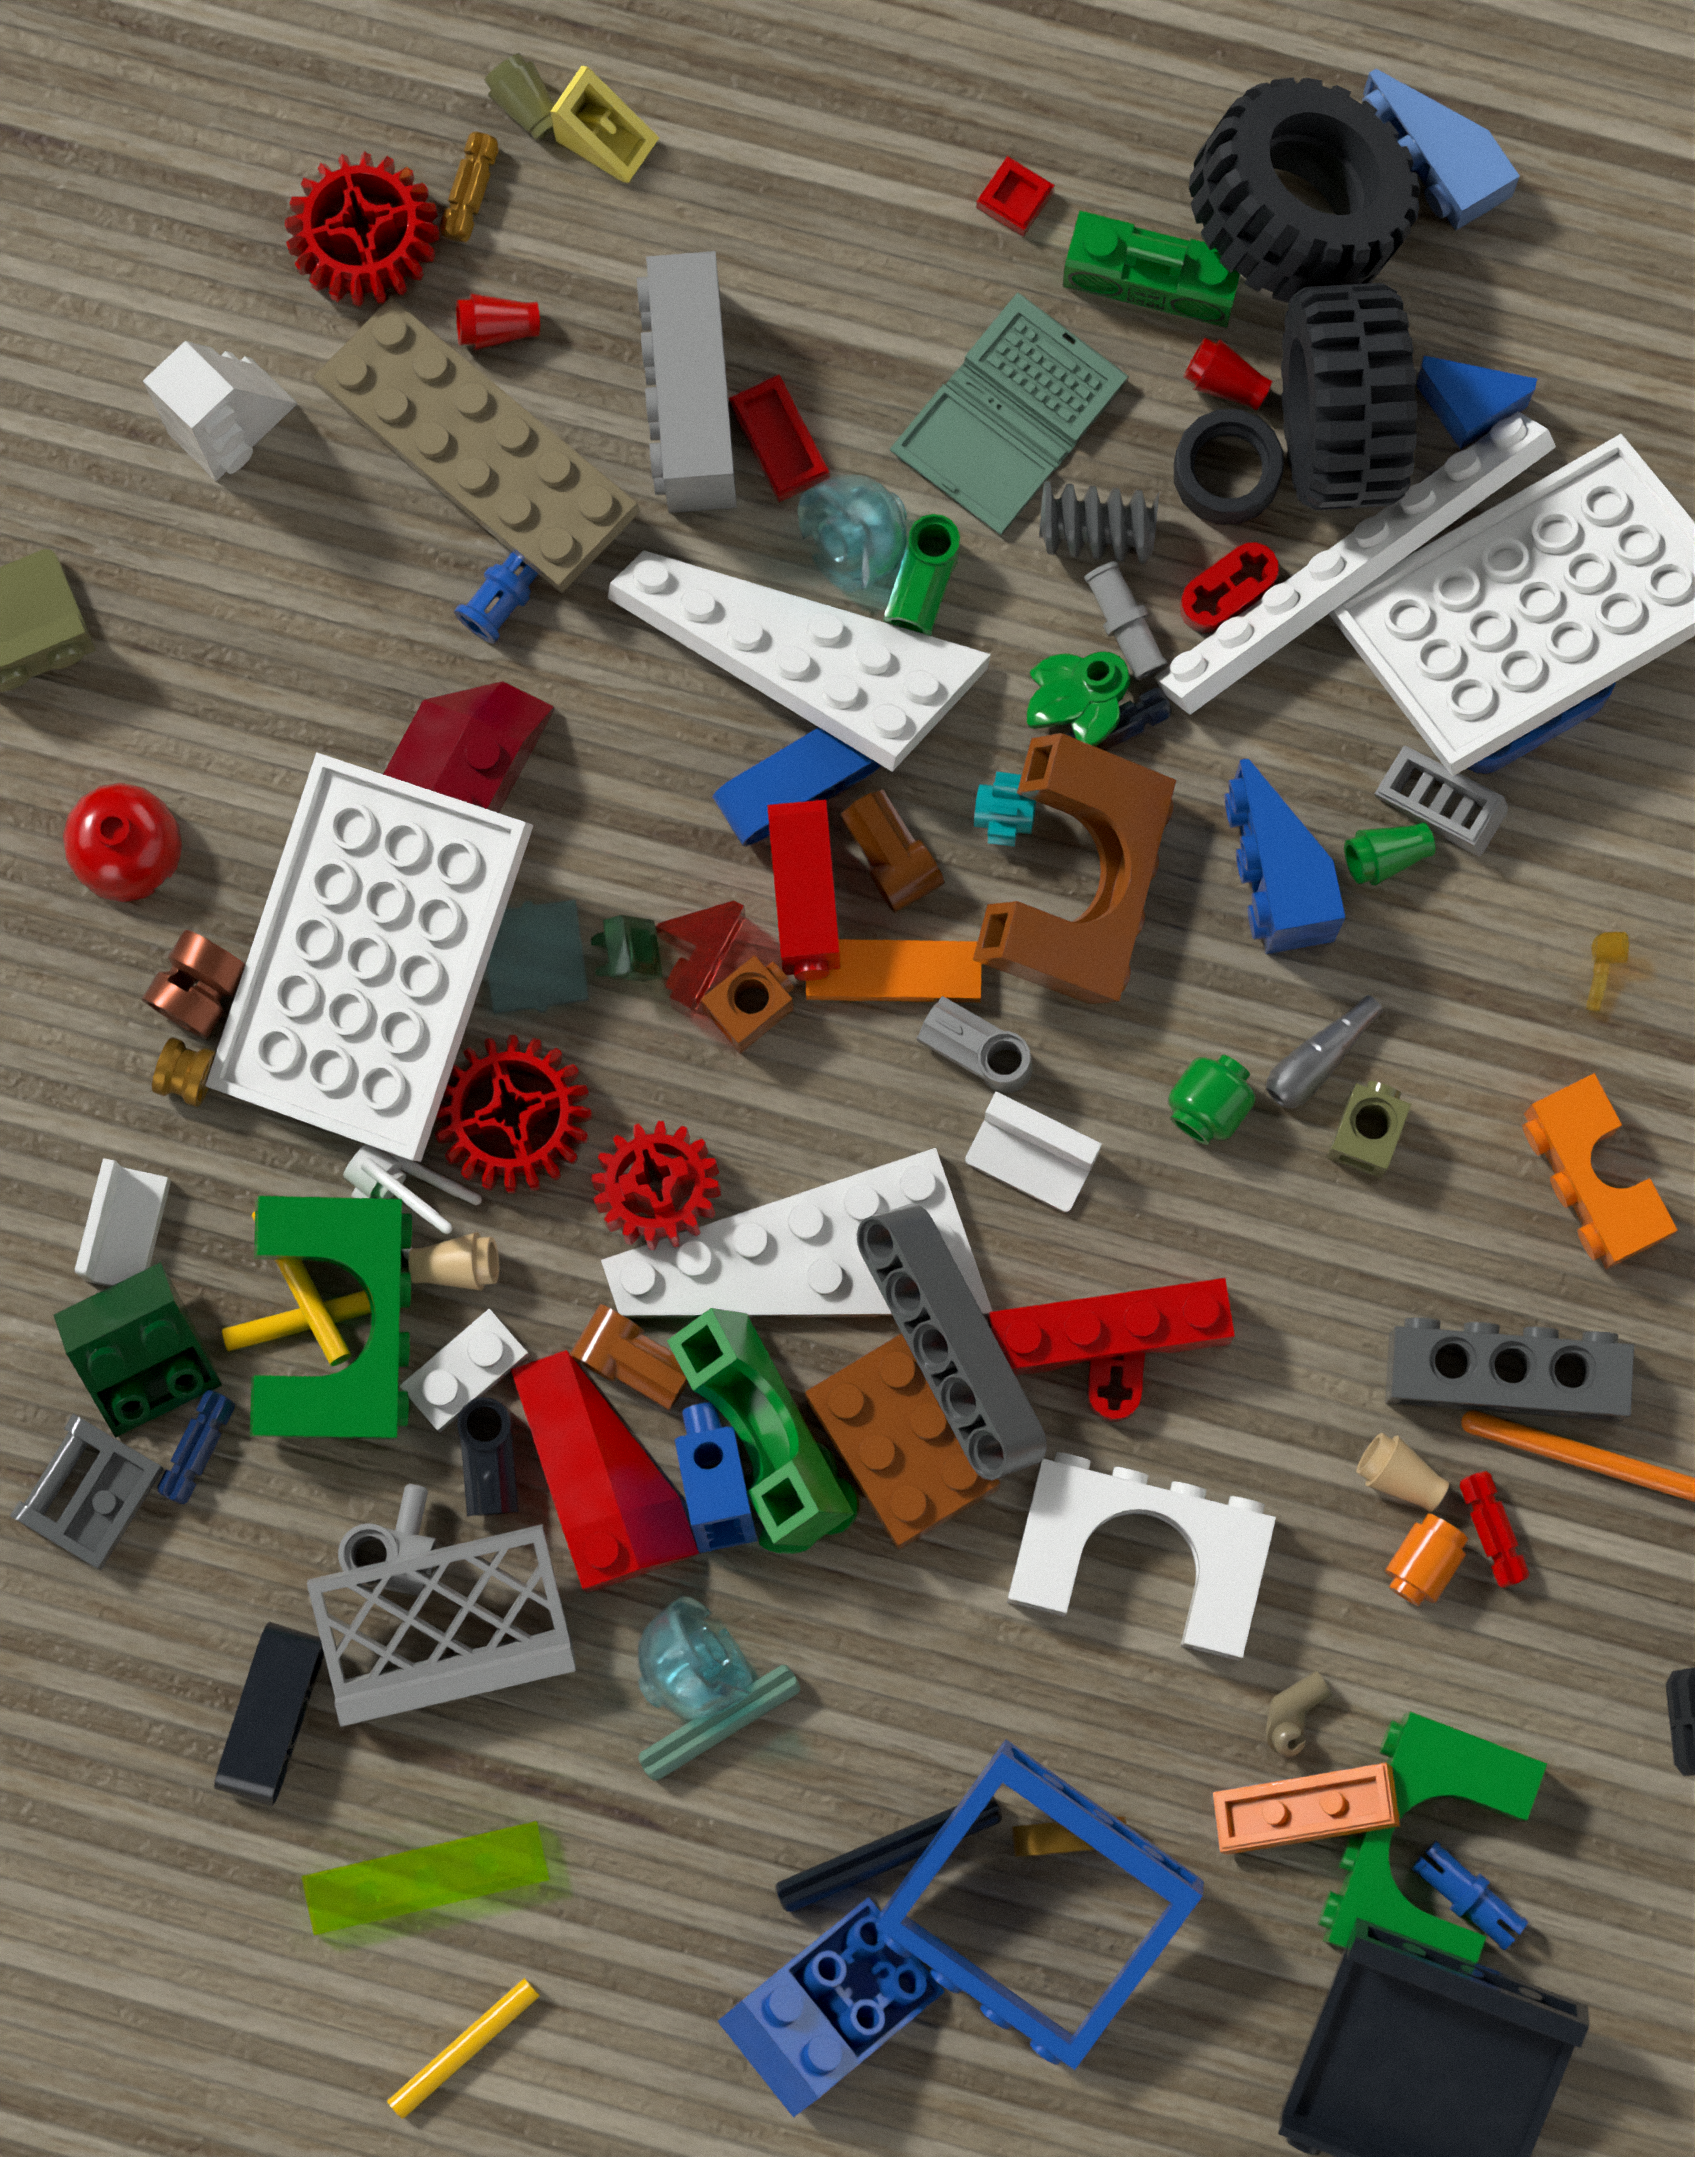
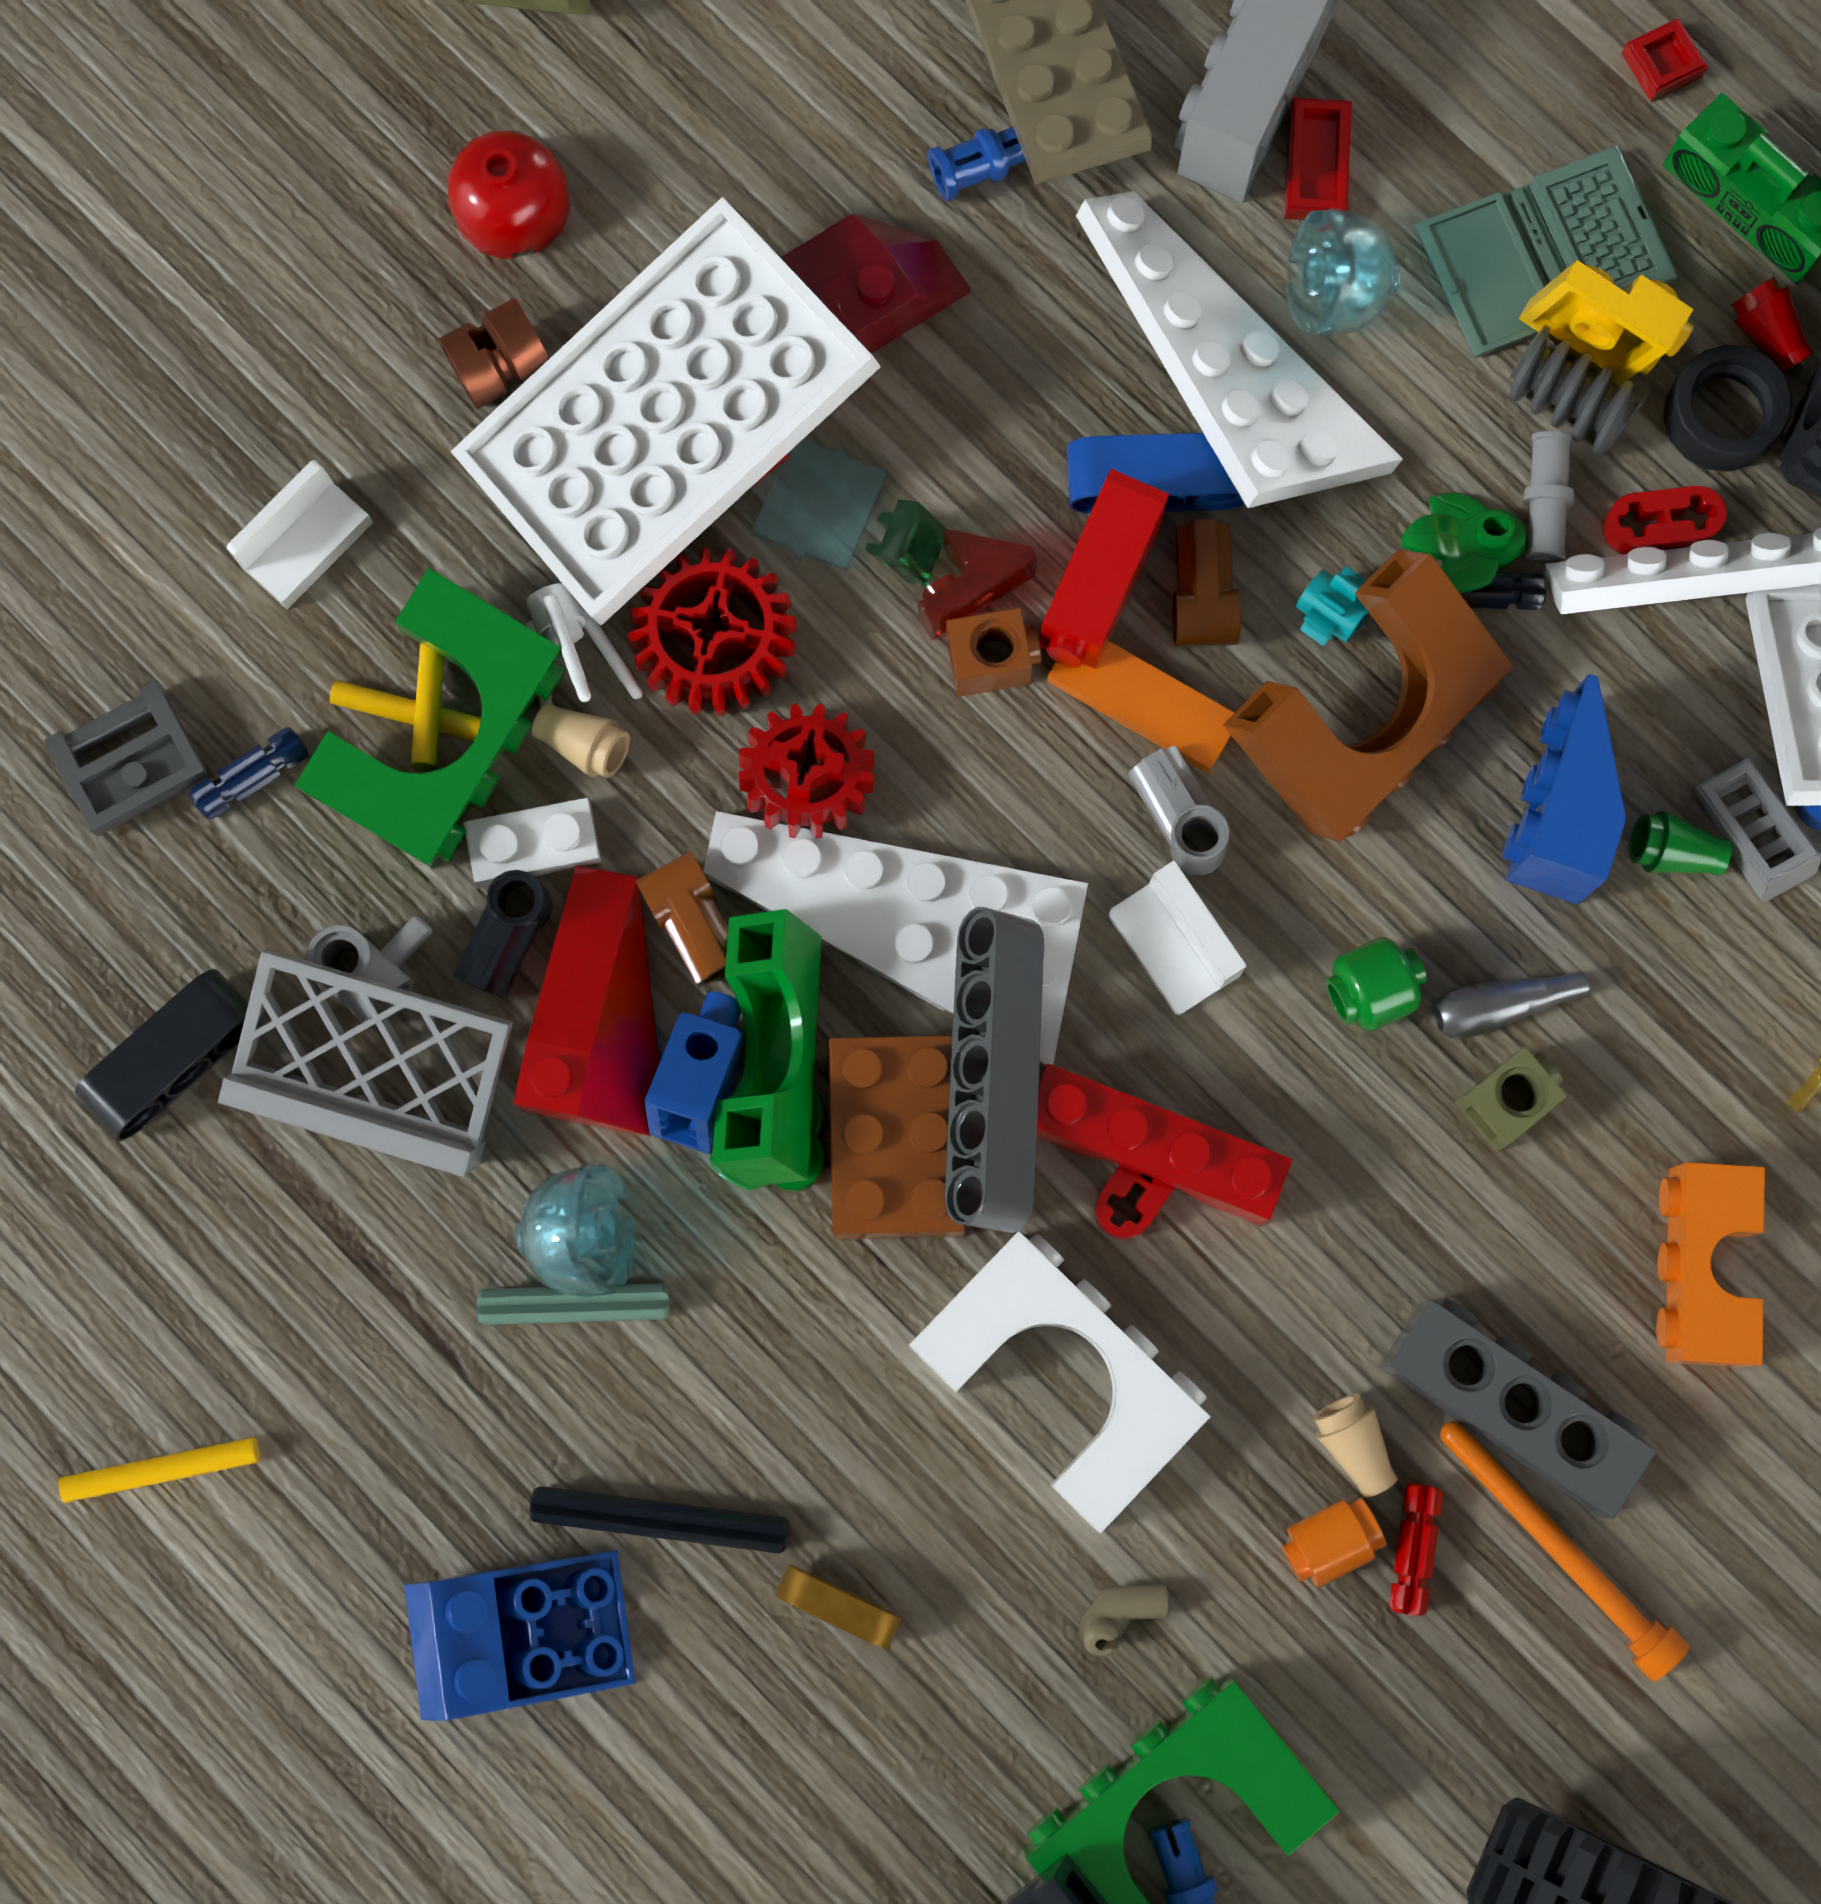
camera: 30 degrees right, 0 degrees up
(136, 1350) = (245, 653): dark green slope -> none
(183, 1072) = (436, 426): pearl gold wheel -> none
(425, 1878) = (219, 1290): clear neon green tile -> none
(923, 578) = (1380, 352): green piece -> none
(1097, 1829) = (864, 1622): blue window -> none
(1108, 455) = (1617, 326): none -> yellow plate
(1306, 1809) = (1079, 1715): orange tile -> none

